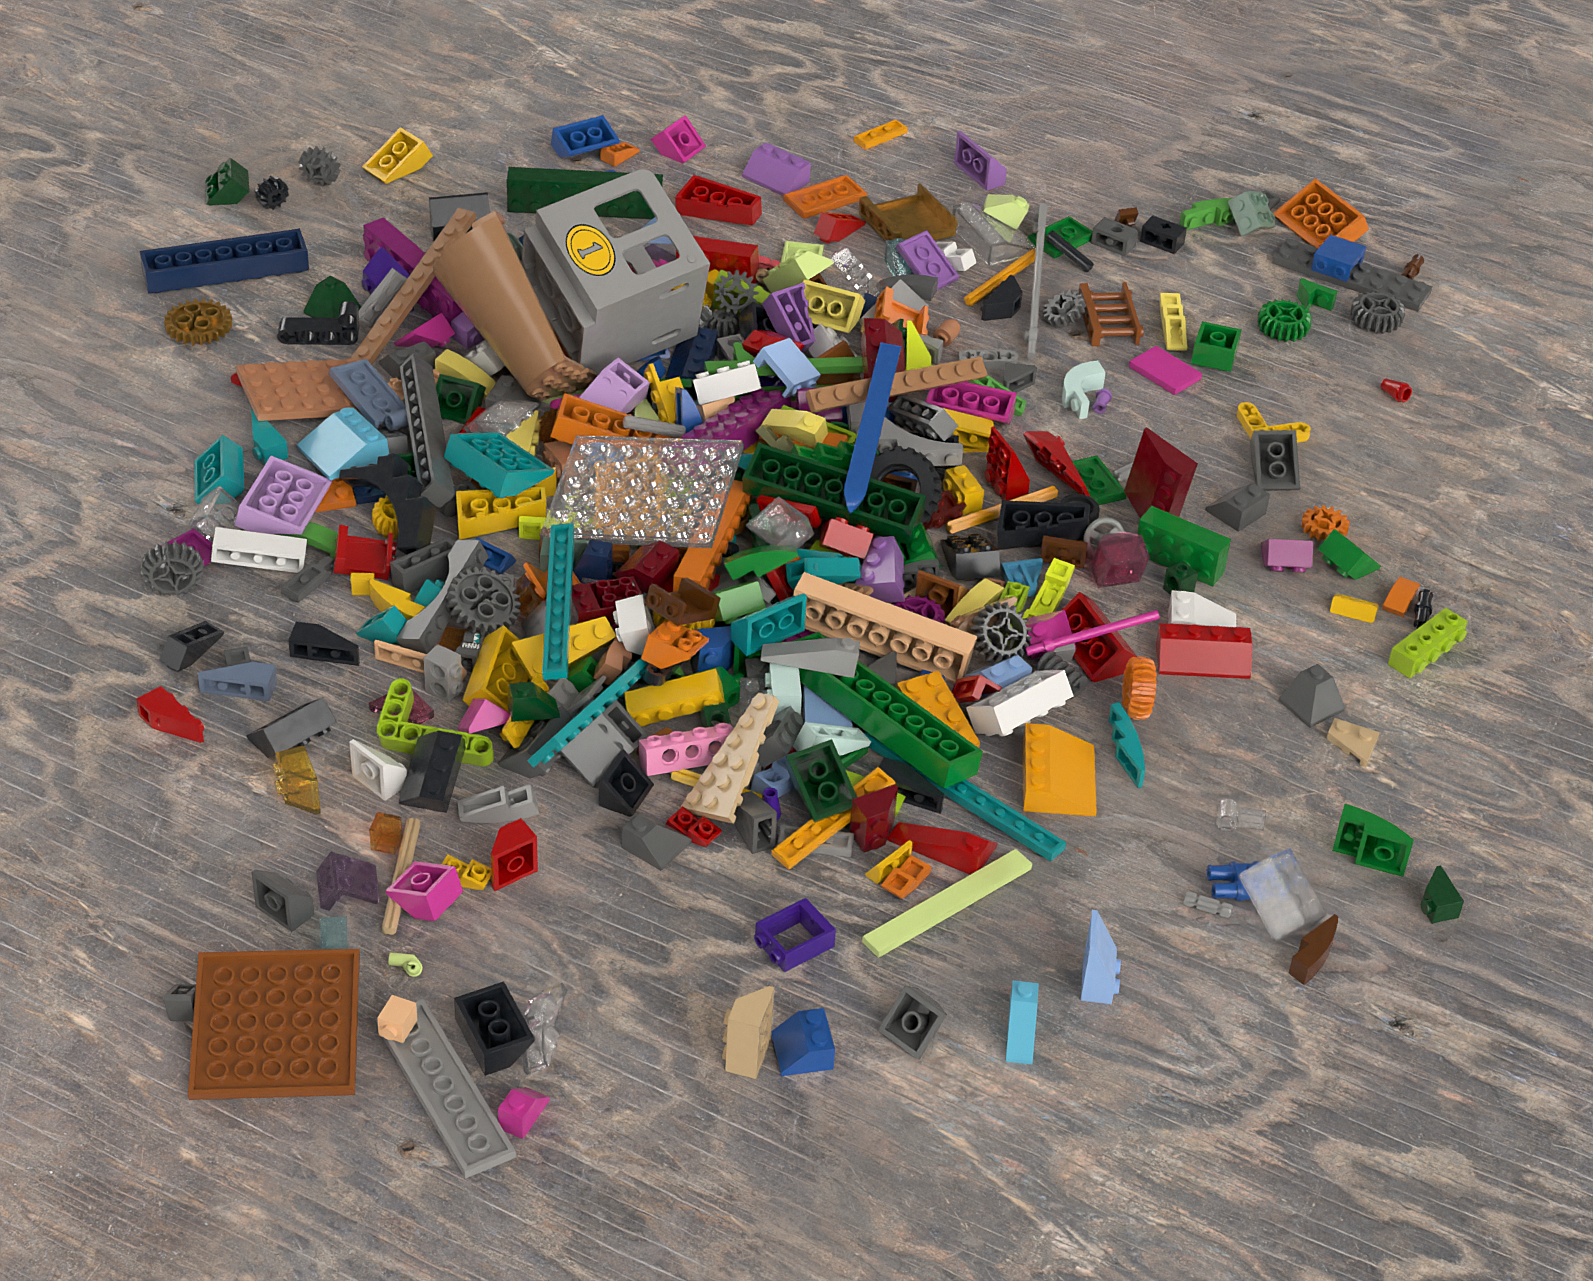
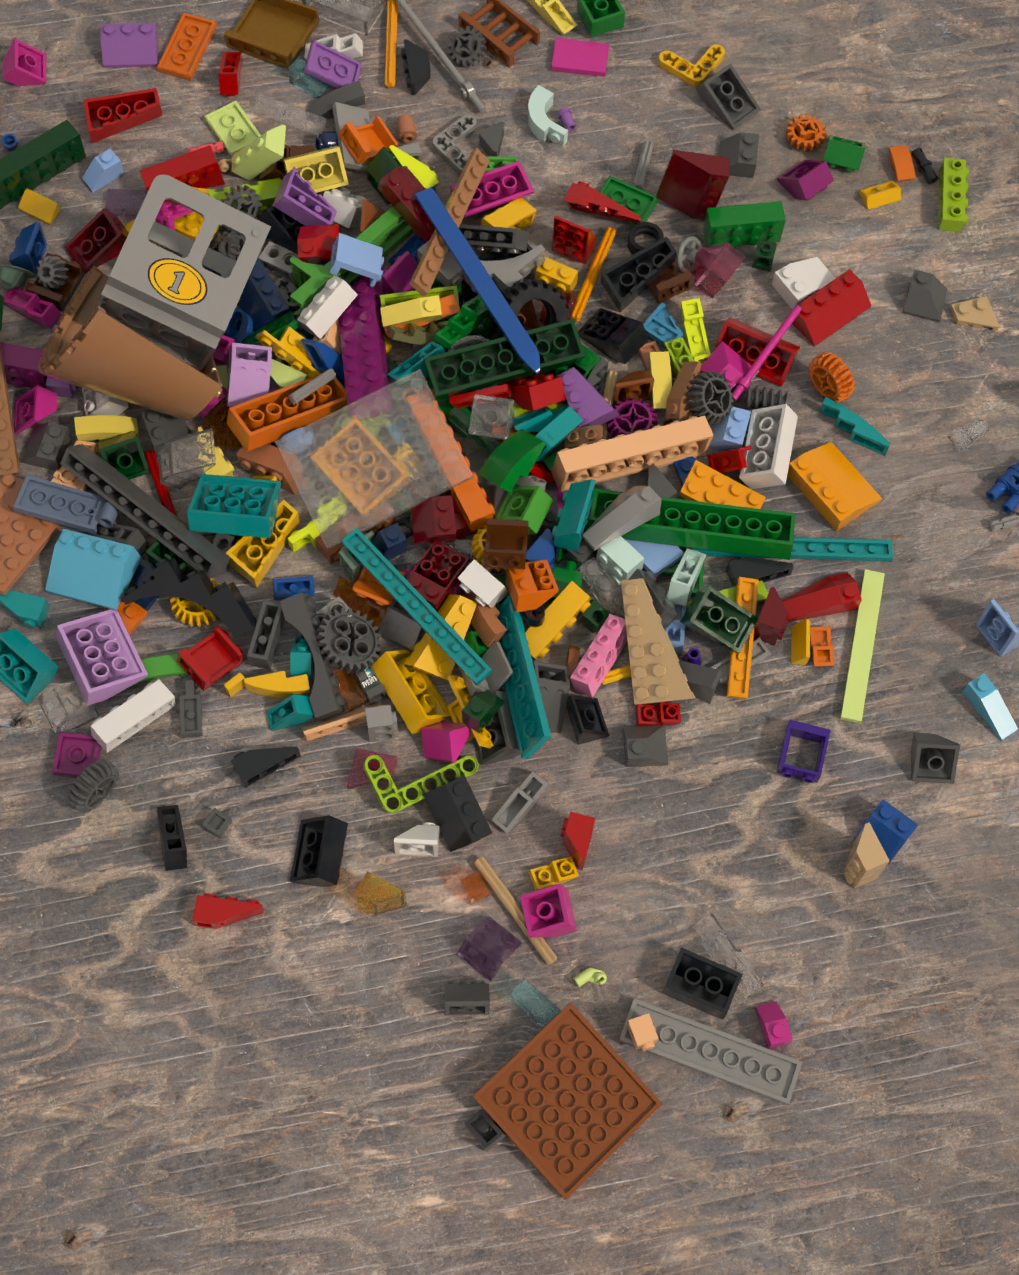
camera: 40 degrees left, 25 degrees up
(242, 680) = (244, 837): sand blue slope -> none

